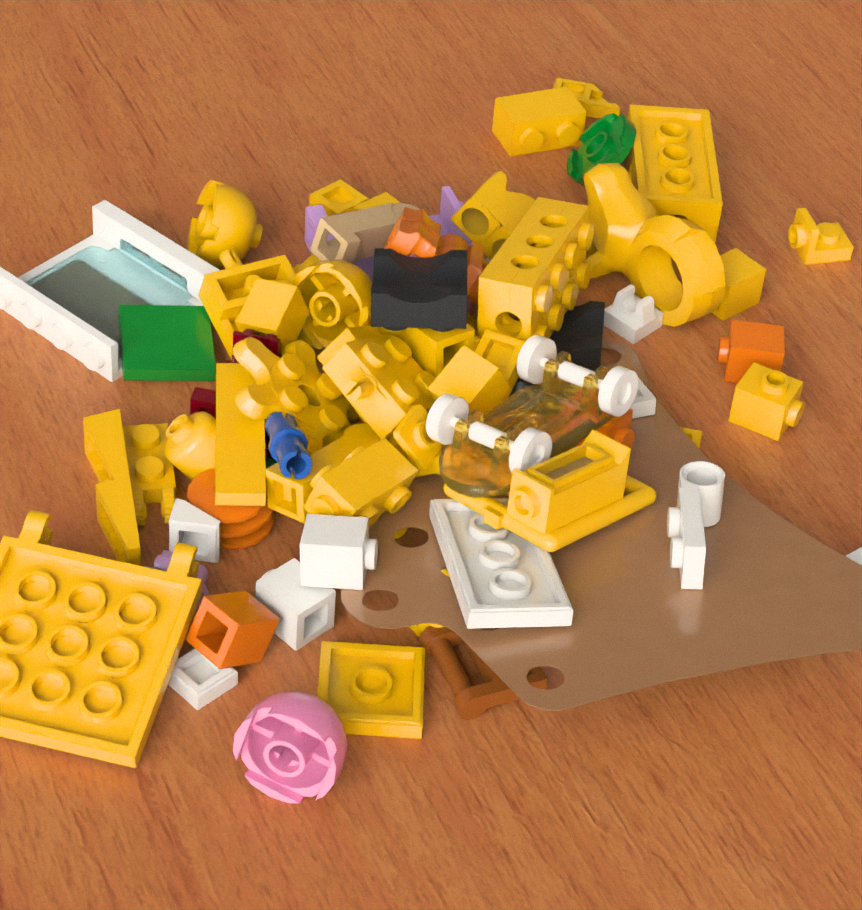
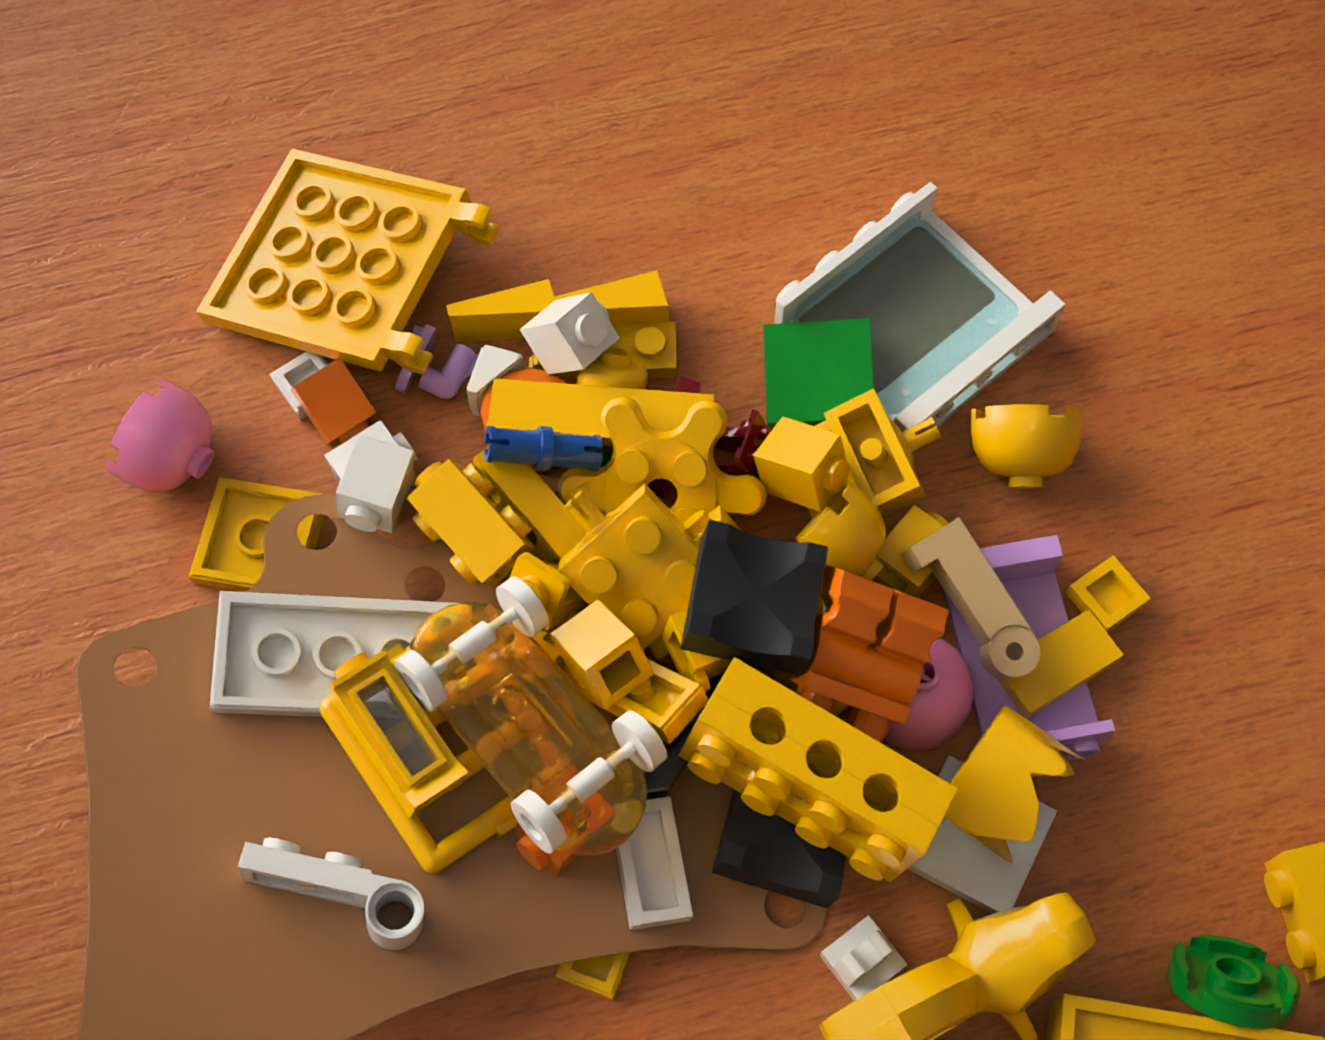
camera: 105 degrees right, 25 degrees up
(166, 445) = (570, 333): none -> white brick

